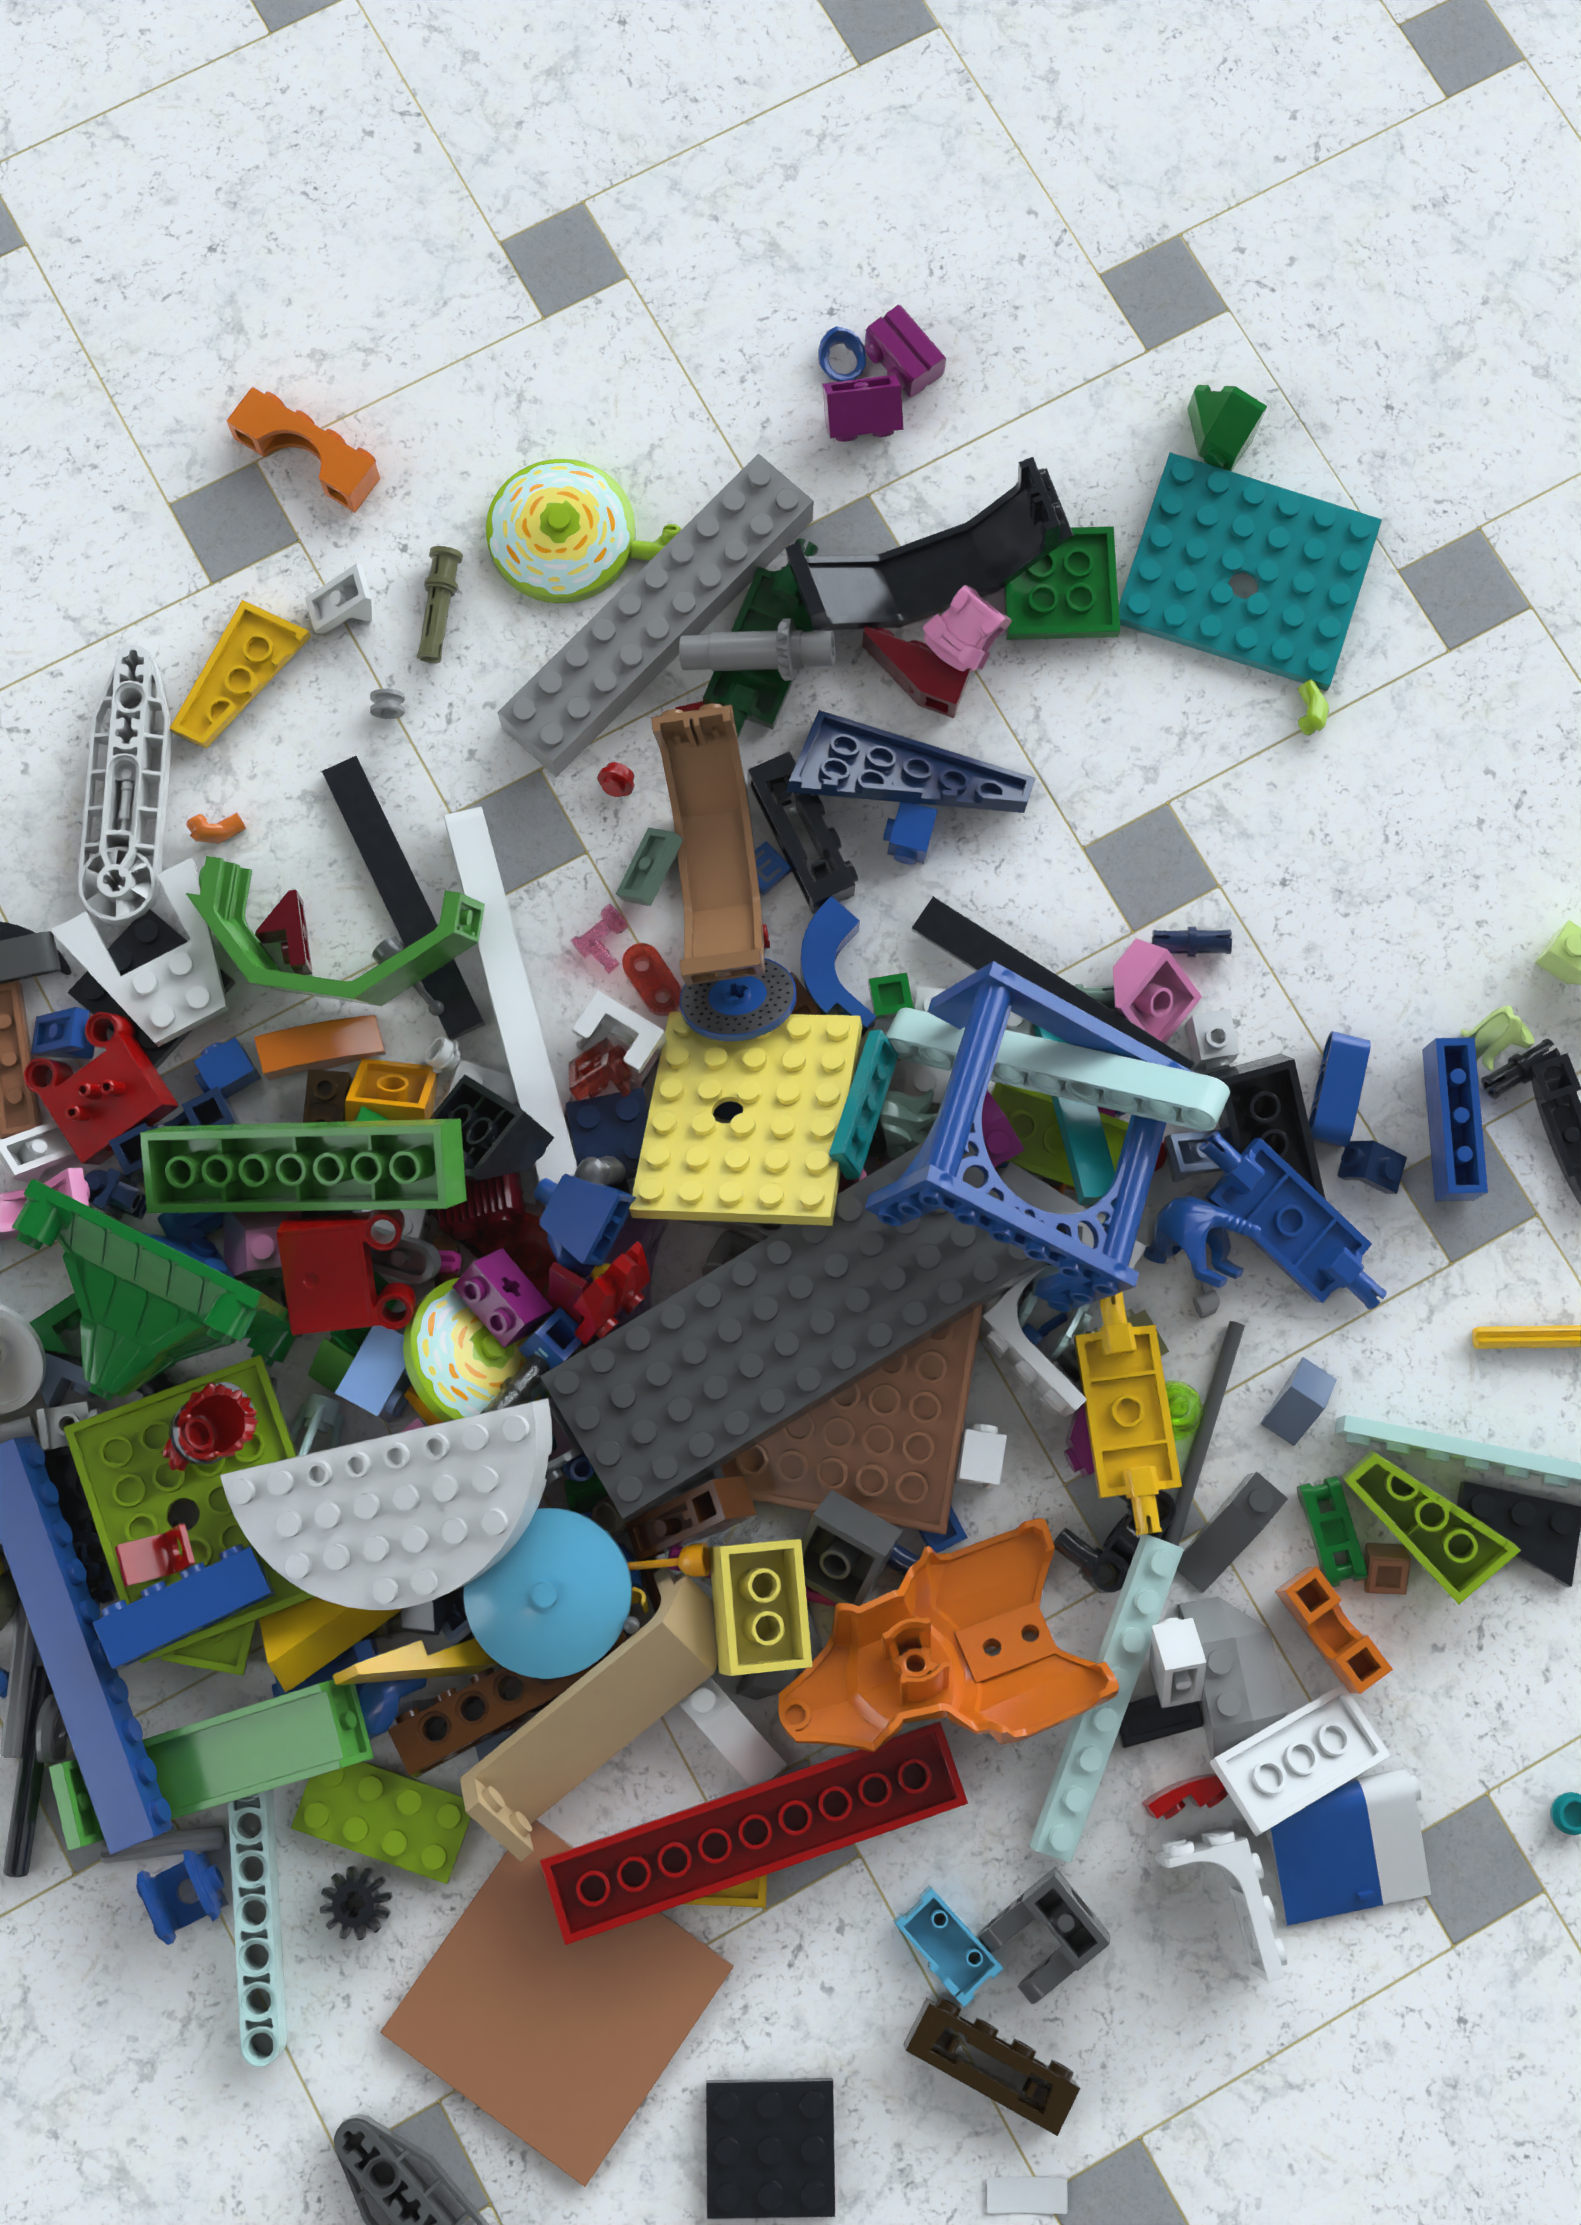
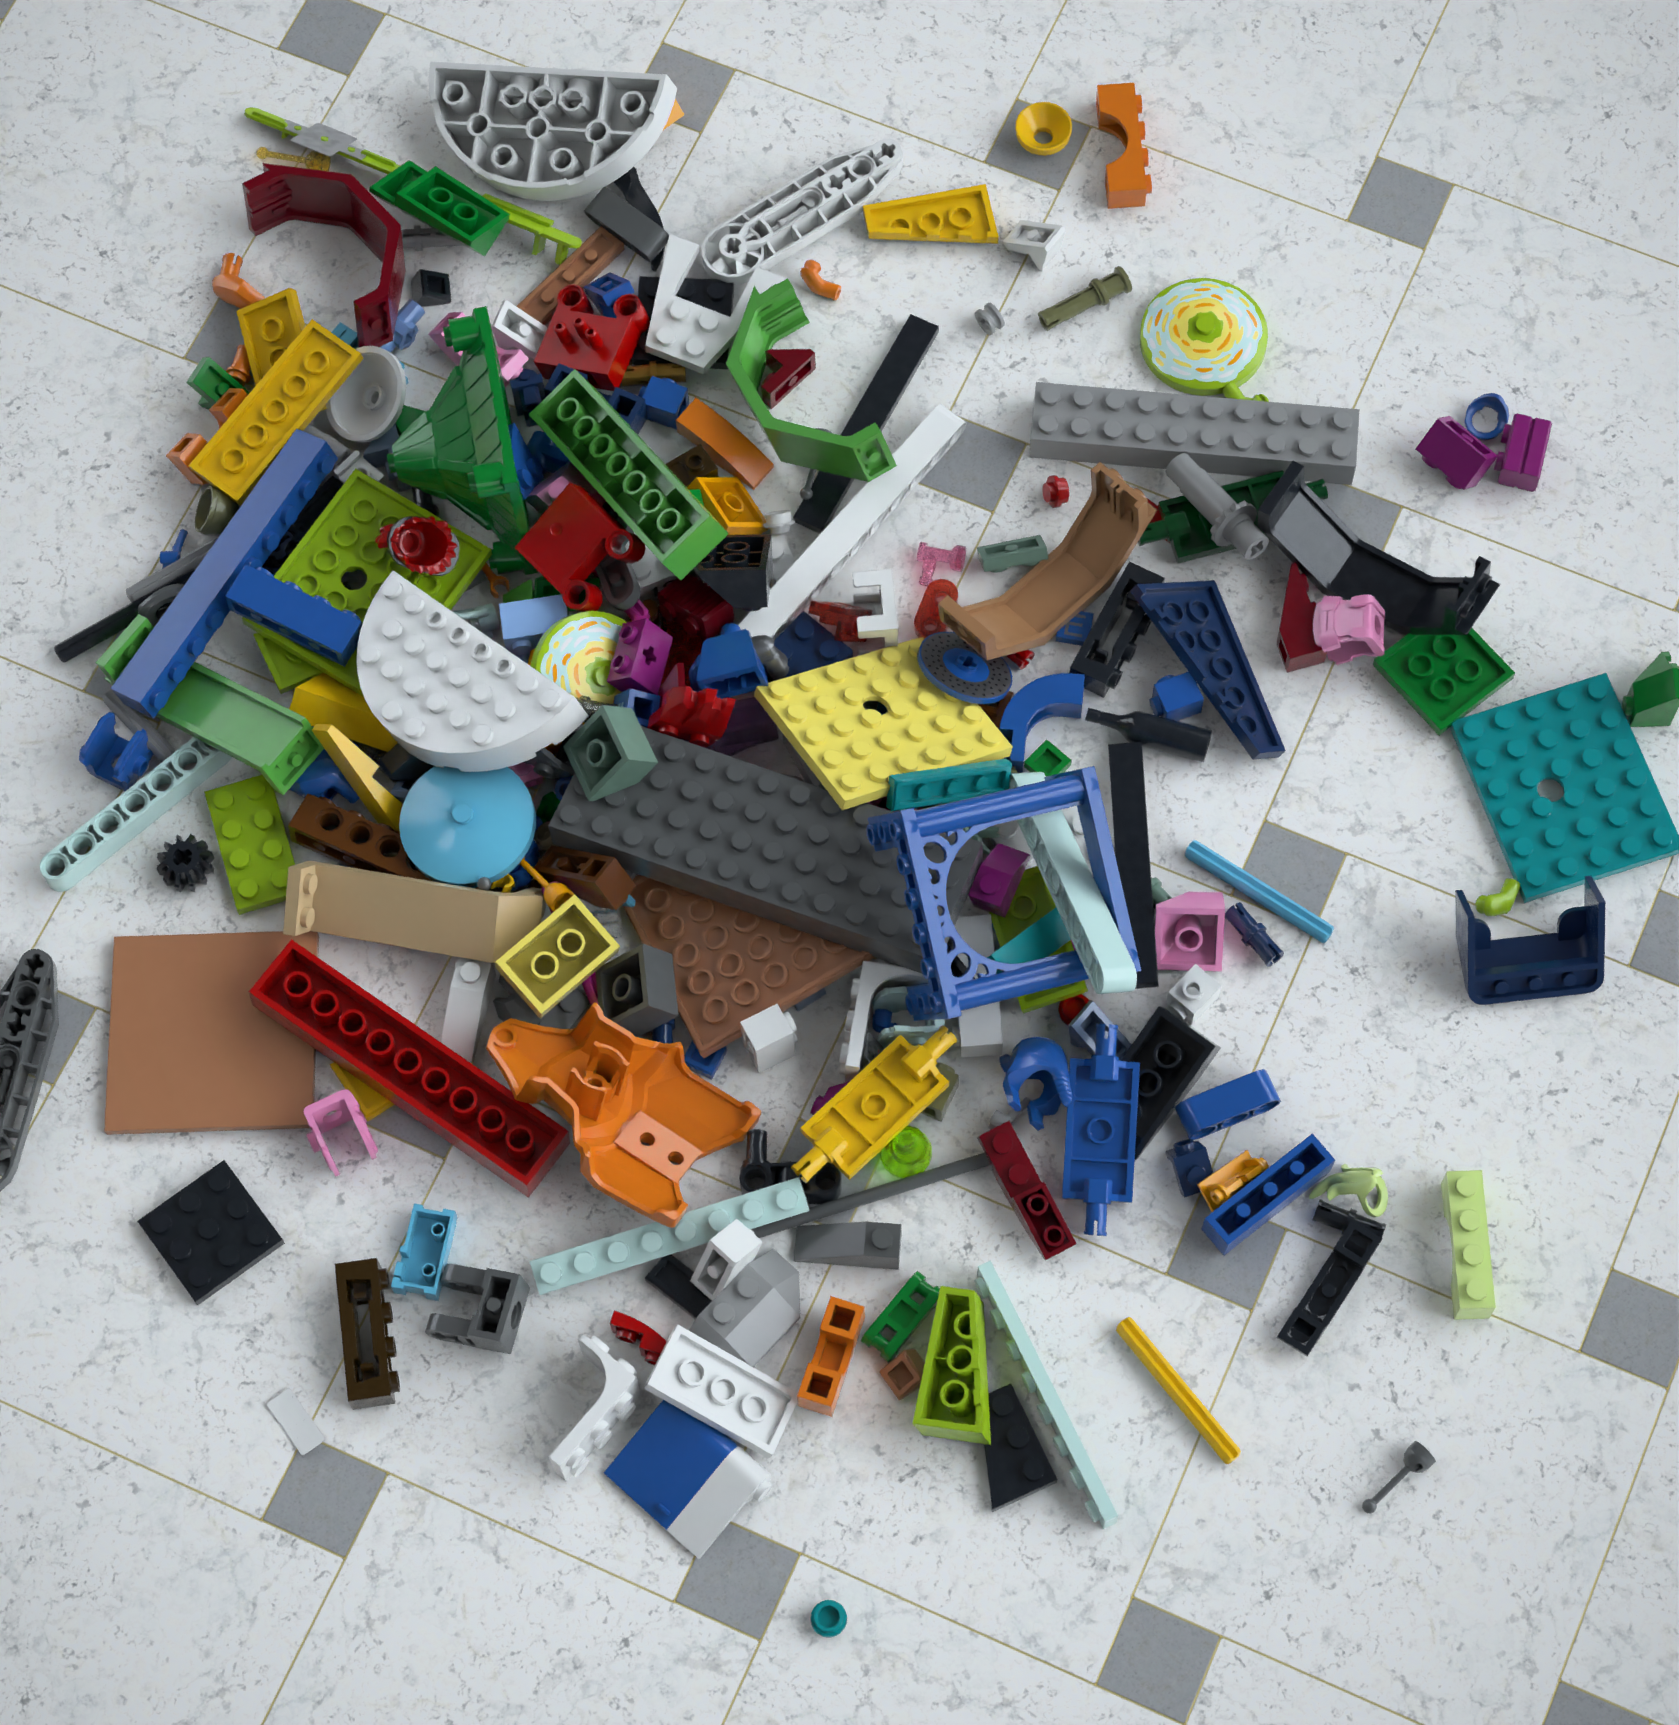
camera: 60 degrees right, 10 degrees down
(154, 1556) = (312, 573): bracket -> none
(184, 1055) = (642, 373): none -> pearl gold pin
(221, 490) = (1043, 118): none -> yellow piece
(284, 1371) = (495, 580): none -> orange hand
(599, 1404) = (610, 752): none -> sand green slope
(757, 1974) = (347, 1110): none -> bright pink piece
(933, 875) = (1157, 732): none -> black piece
(1151, 905) = (1259, 891): none -> medium azure axle
(1295, 1331) = (1025, 1191): none -> dark red slope
(1299, 1402) = (980, 1231): sand blue slope -> none
(1399, 719) = (1536, 964): none -> dark blue windscreen
(1417, 1145) = (1231, 1179): none -> light orange hinge

